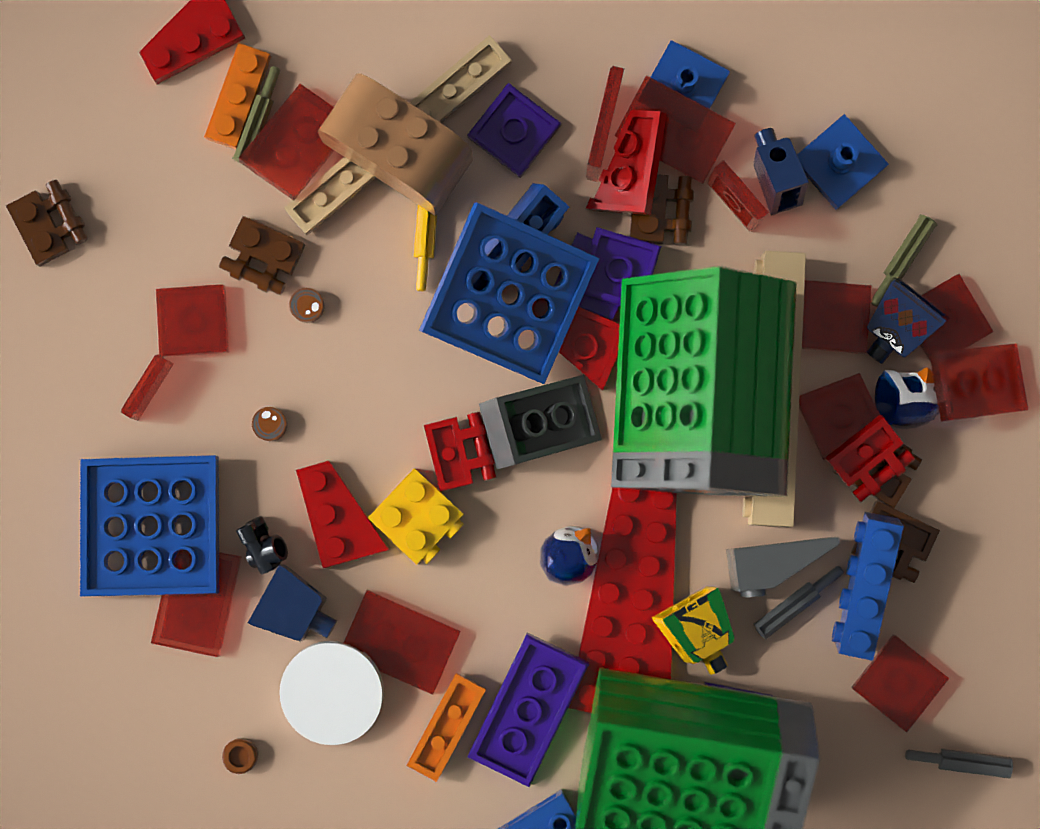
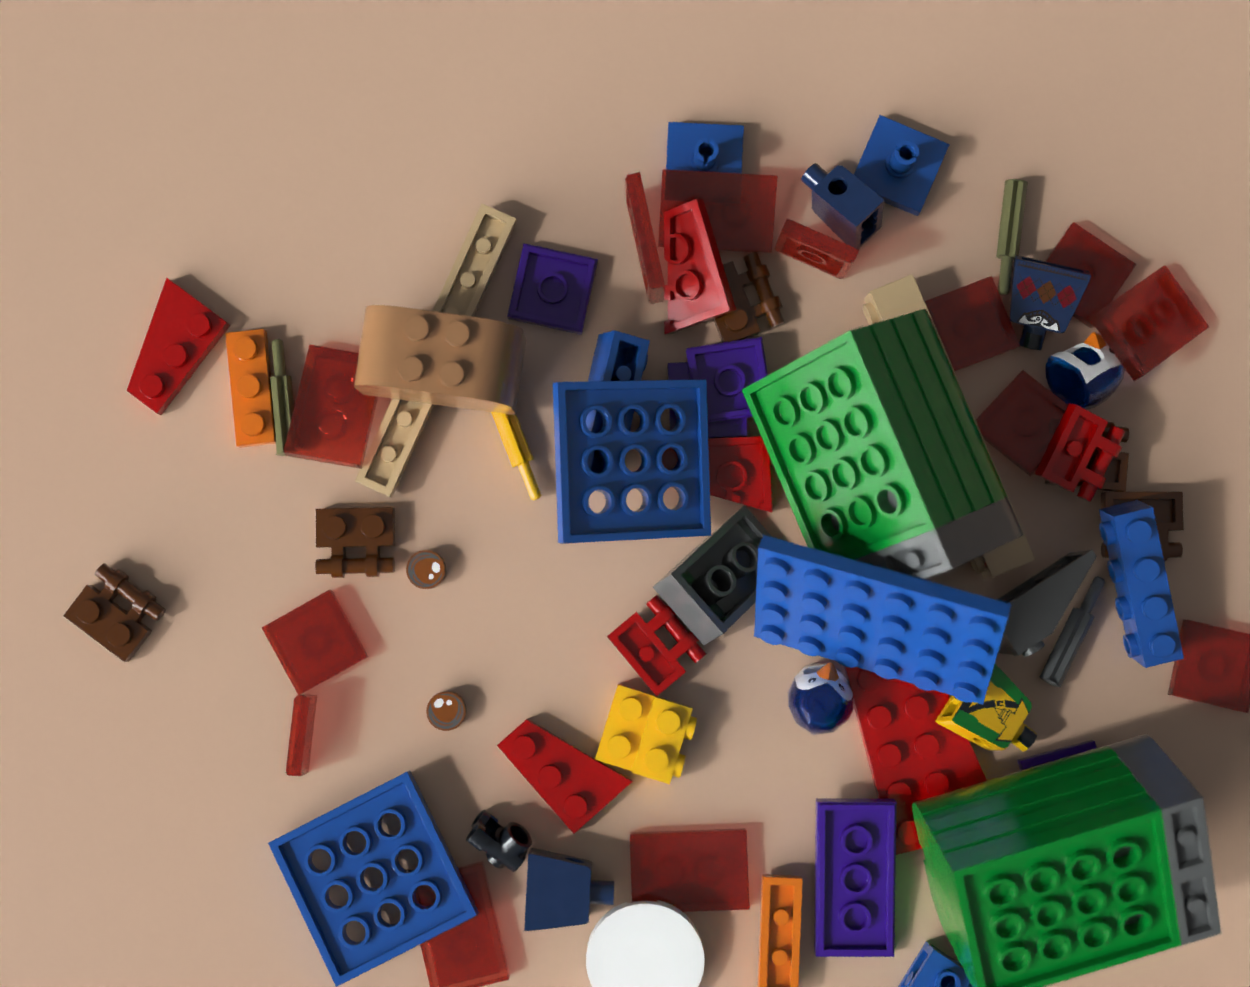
camera: 30 degrees left, 0 degrees up
(639, 508) = (877, 619): none -> blue plate

